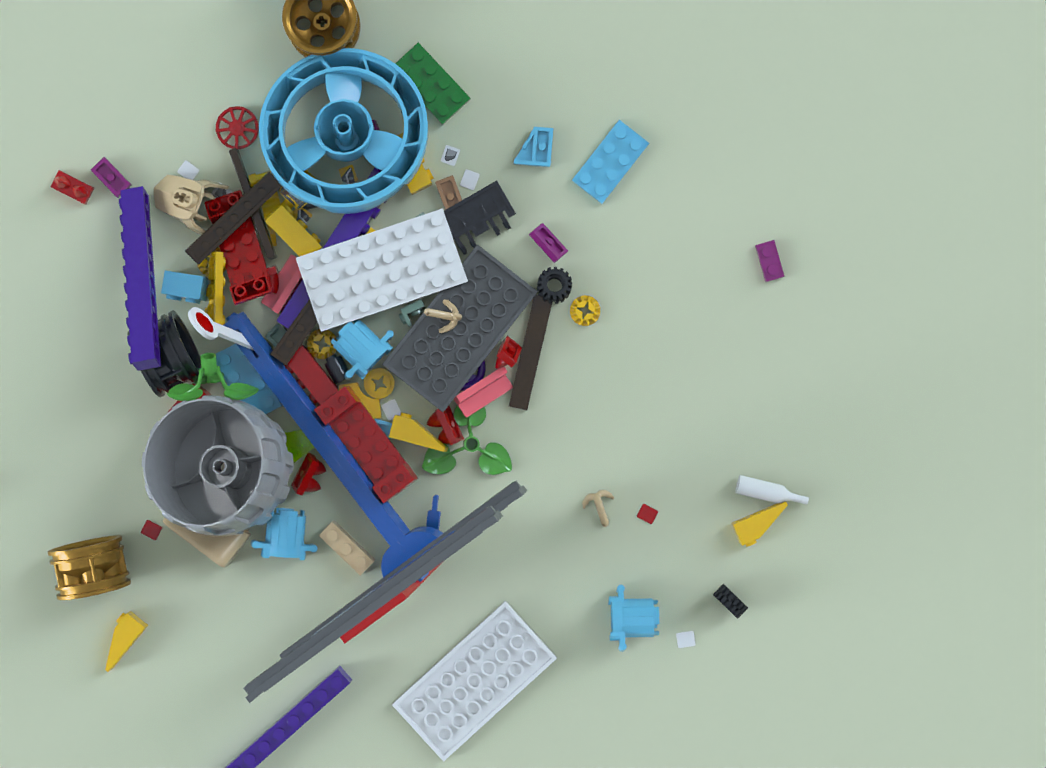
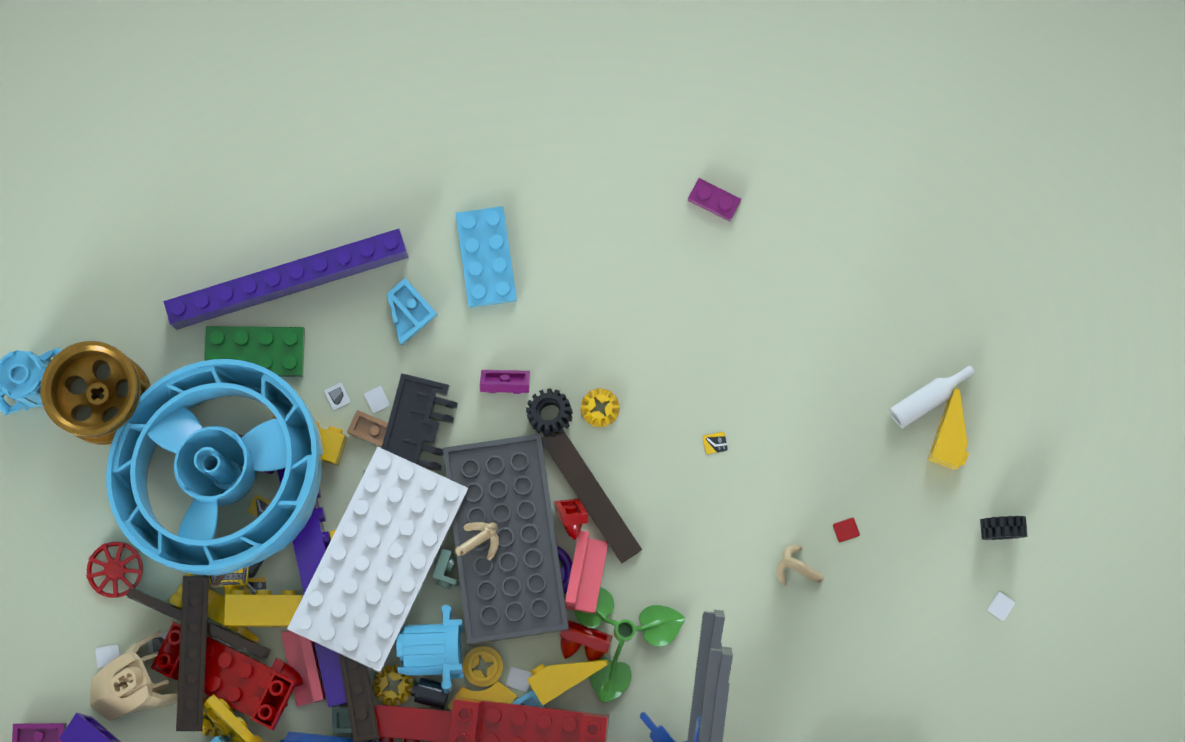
camera: 50 degrees left, 10 degrees down
(488, 61) = (286, 279): none -> dark purple brick
(627, 394) = (715, 443): none -> sticker
(632, 618) = (935, 636): medium azure container -> none

